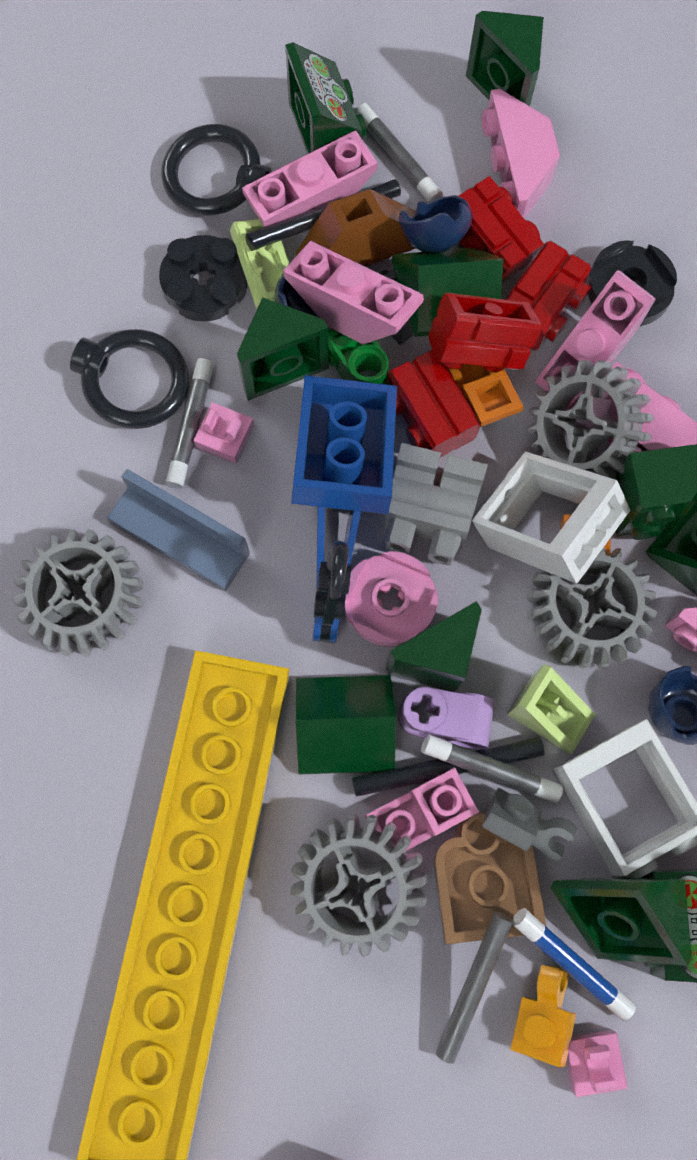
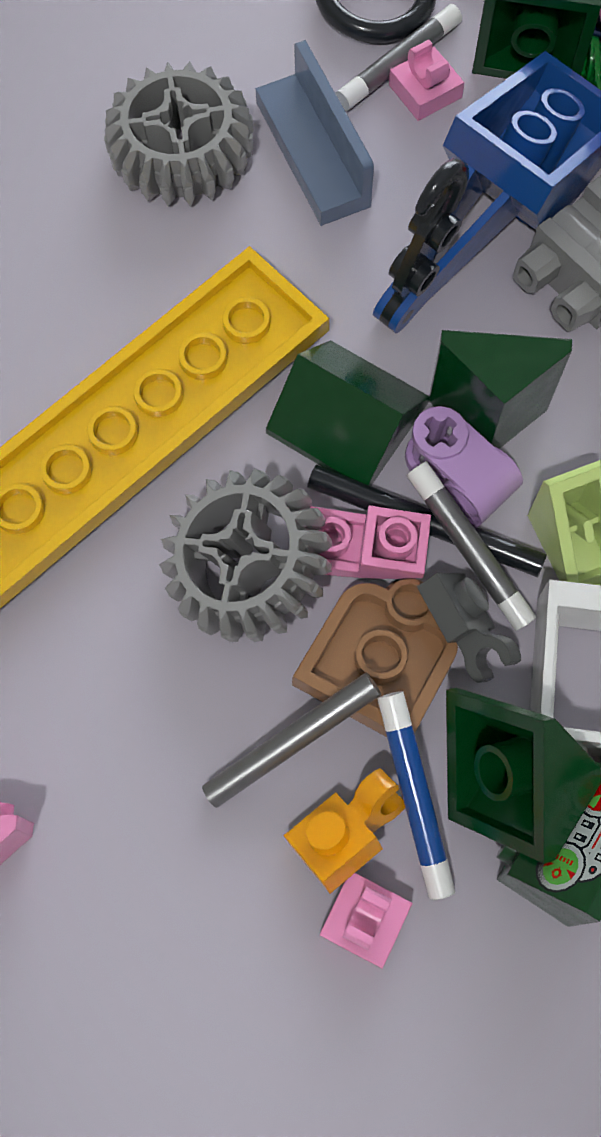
camera: 40 degrees right, 5 degrees down
(415, 589) = (474, 292): bright pink plate -> none

